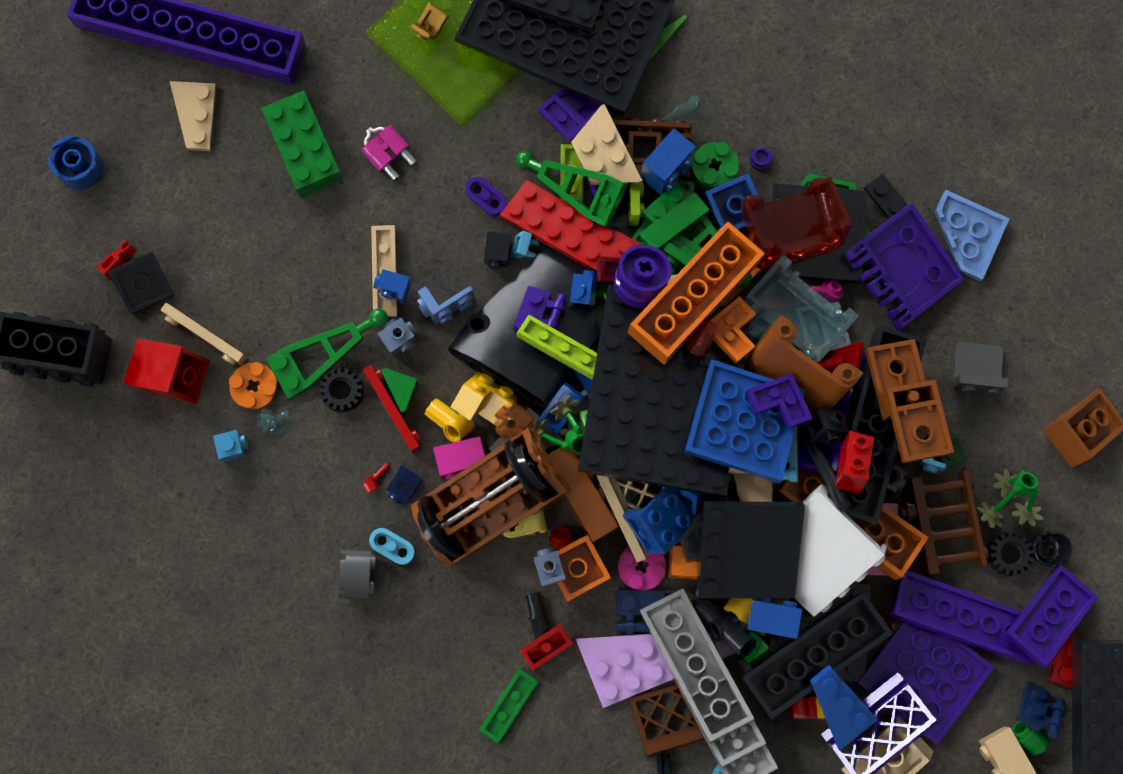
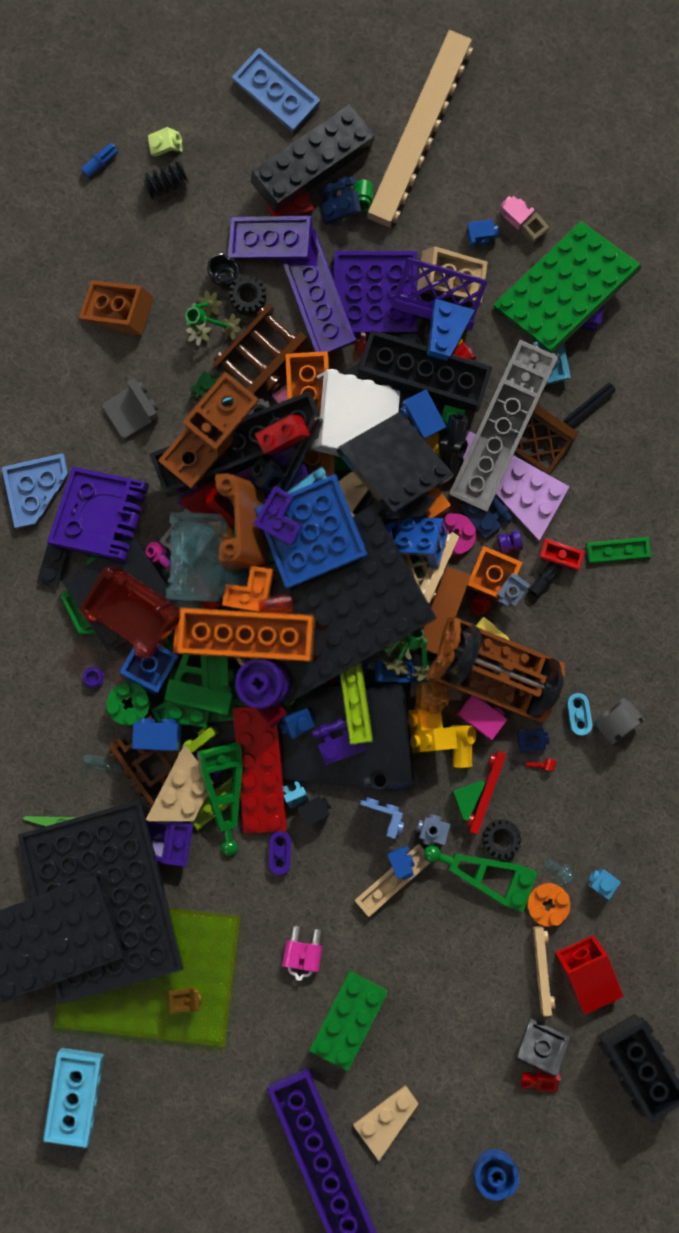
camera: 130 degrees left, 5 degrees up
(597, 604) = (510, 542): none -> dark purple wheel

